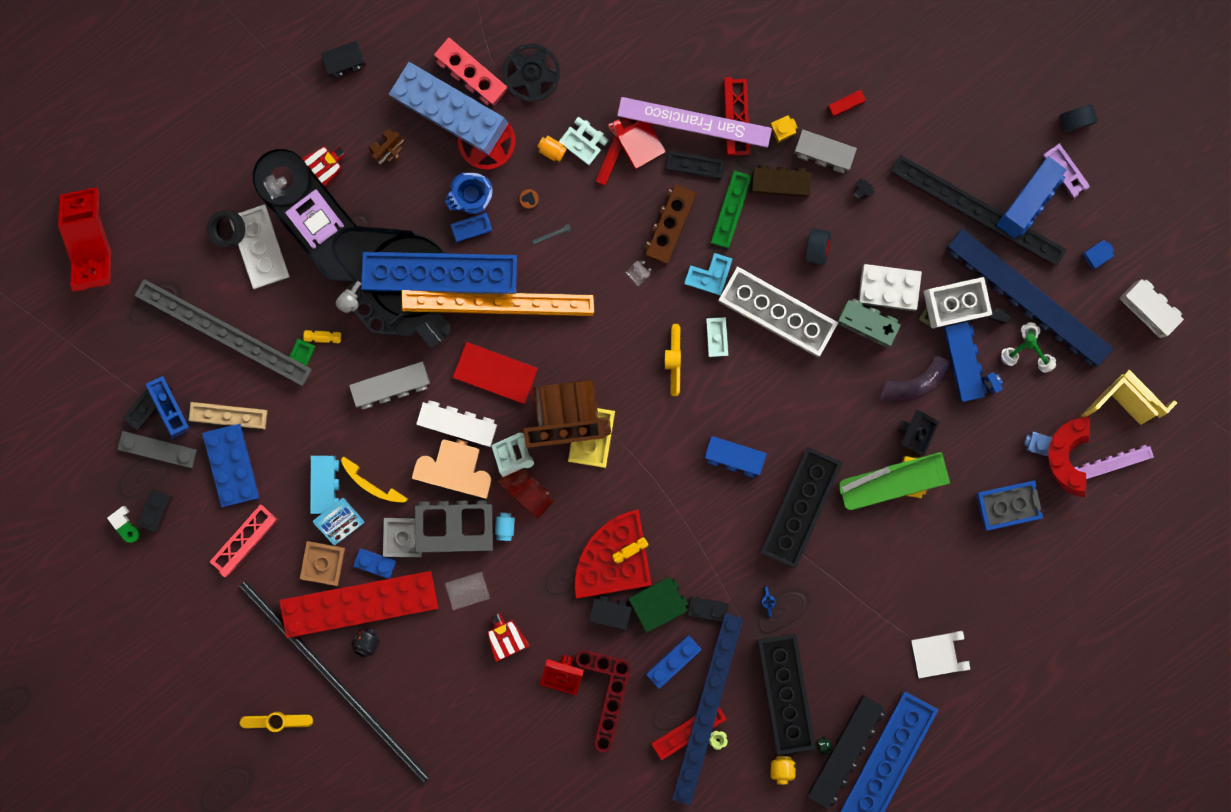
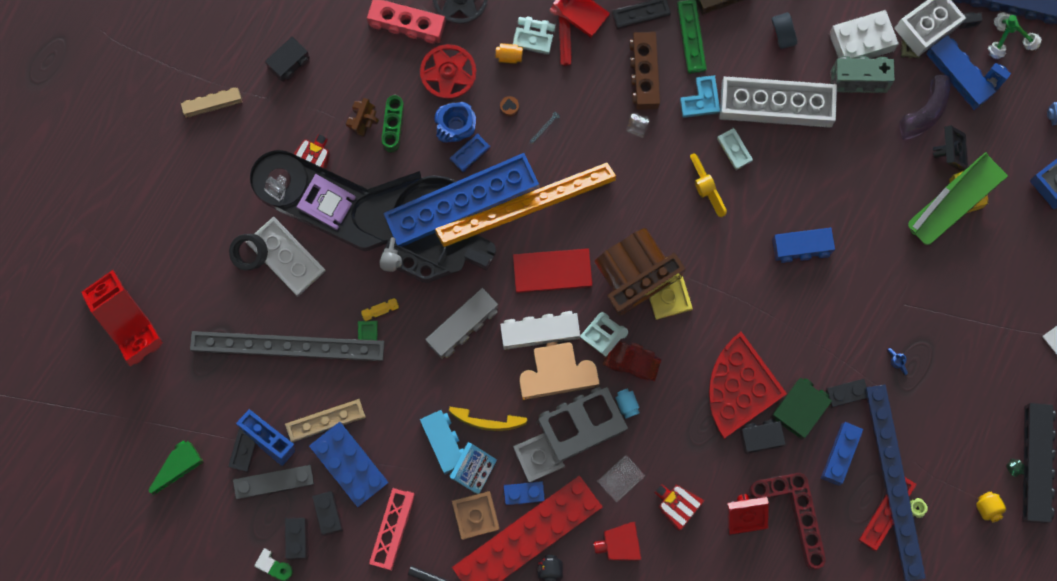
camera: 25 degrees left, 10 degrees down
(80, 394) = (178, 464): none -> green slope
(192, 501) = (327, 513): none -> black brick
(255, 67) = (211, 102): none -> tan piece
(413, 157) = (392, 115): none -> green beam
(438, 648) = (620, 543): none -> red torso
(448, 108) = (402, 56): medium blue brick -> none
(630, 550) = (752, 370): yellow axle -> none
(786, 693) = (959, 435): black brick -> none
(801, 507) = (885, 261): black brick -> none

